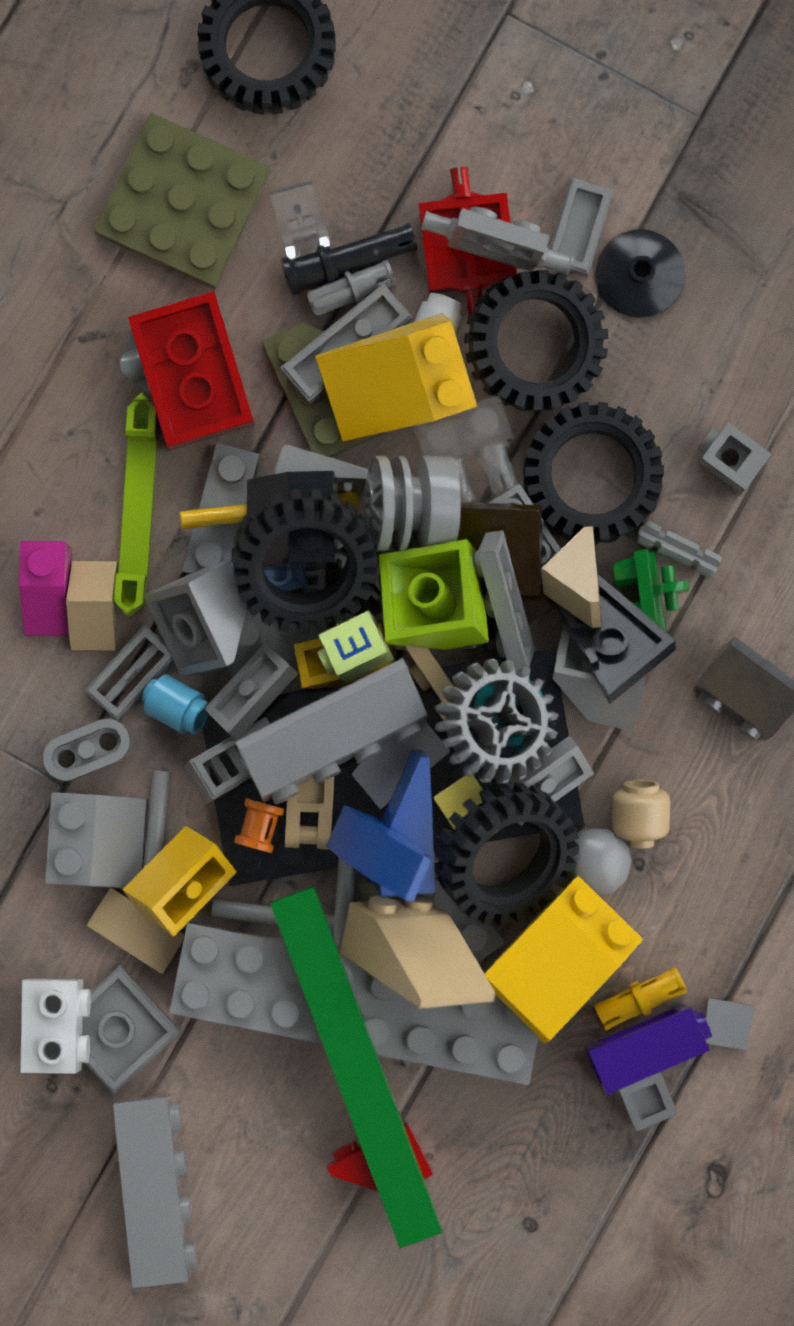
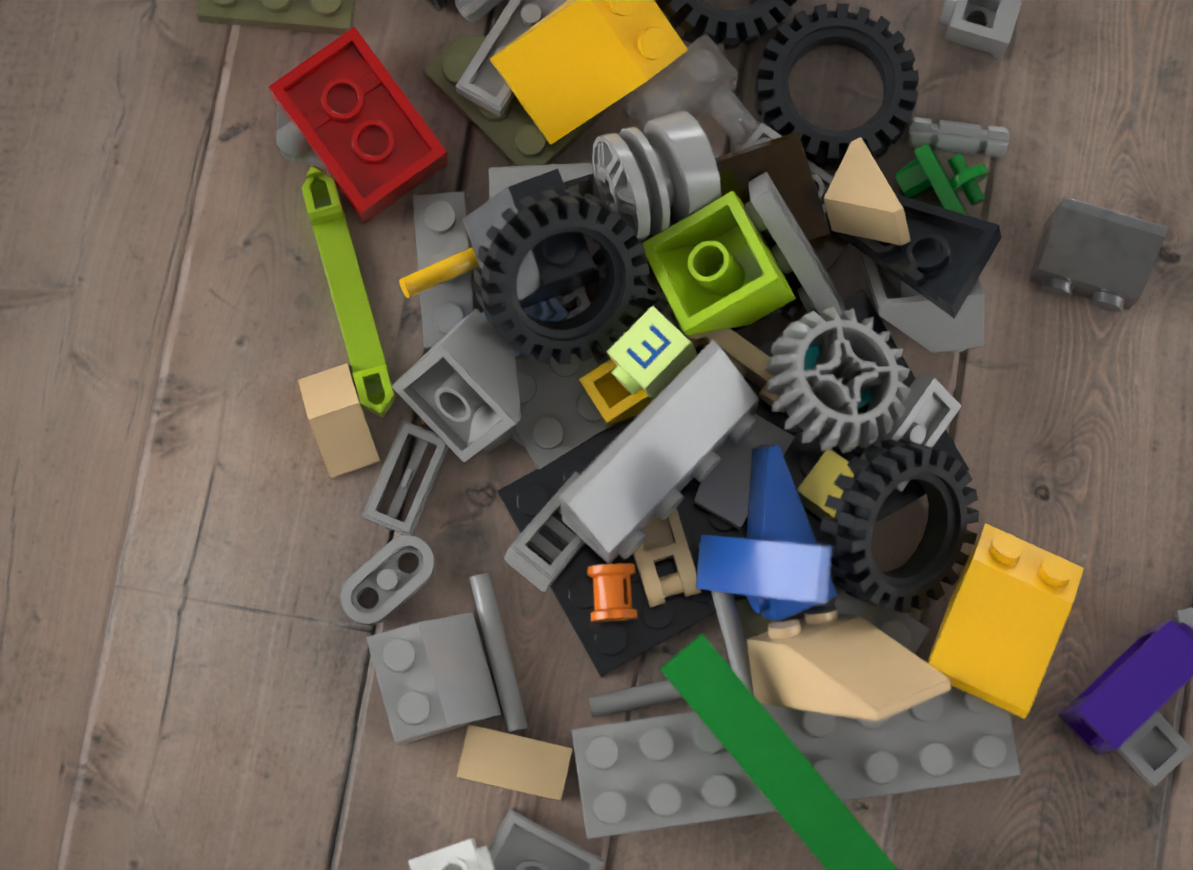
camera: 25 degrees left, 5 degrees down
(44, 587) = (278, 417): dark pink slope -> none
(175, 704) = (470, 494): medium azure brick -> none
(179, 881) = (545, 686): yellow brick -> none
(251, 691) = (550, 447): light grey plate -> none
(602, 860) = (1004, 500): light grey hair -> none
(640, 813) = (1026, 433): tan head -> none
(640, 998) = (1102, 637): yellow pin -> none

